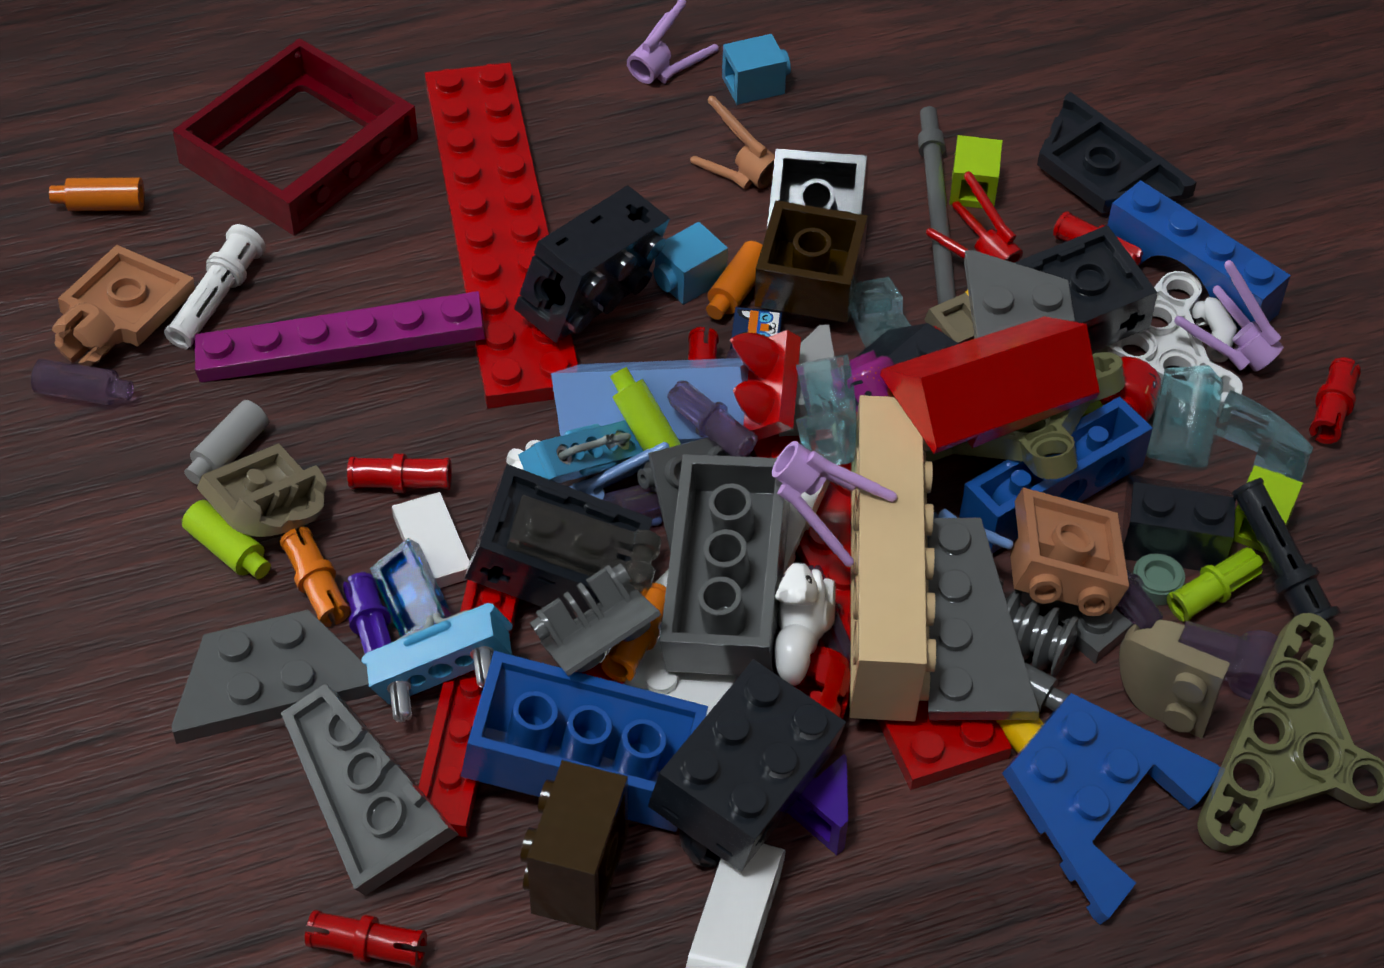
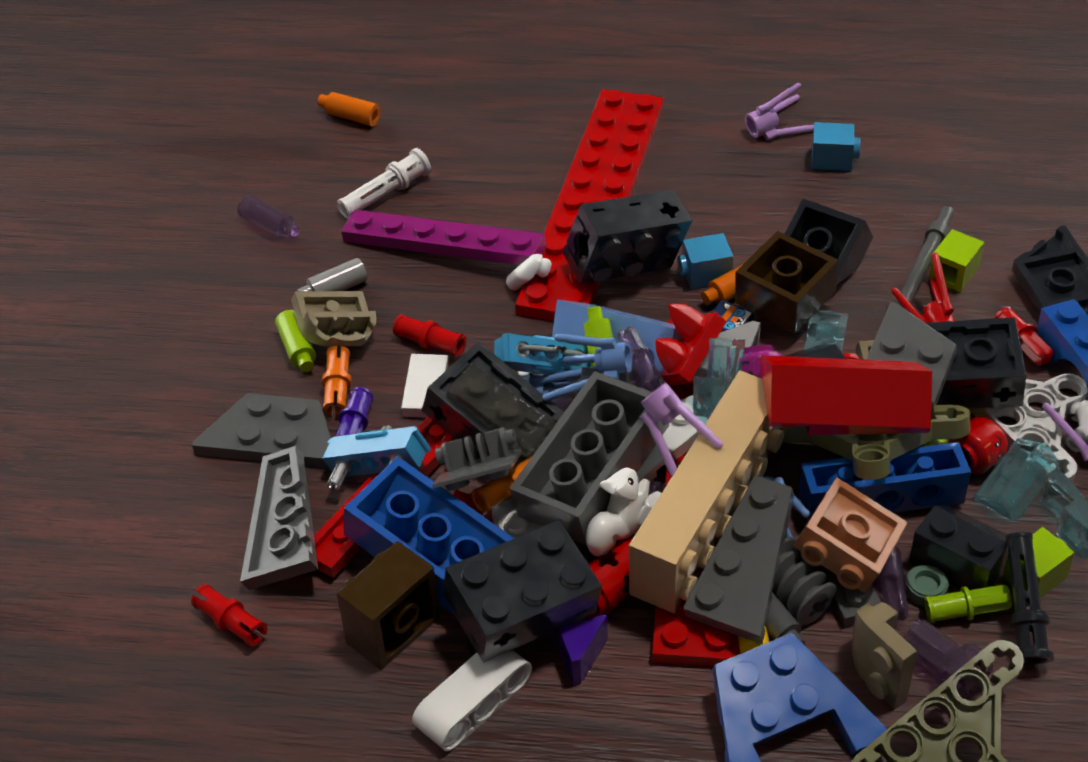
camera: 30 degrees right, 5 degrees down
(117, 303) = (317, 177): nougat plate -> none
(300, 67) = (551, 120): dark red piece -> none
(409, 587) = (391, 404): clear blue tile -> none
(482, 347) = (524, 272): none -> white arm
(687, 429) = (611, 358): none -> medium blue plant
(754, 159) = (790, 202): nougat plant -> none

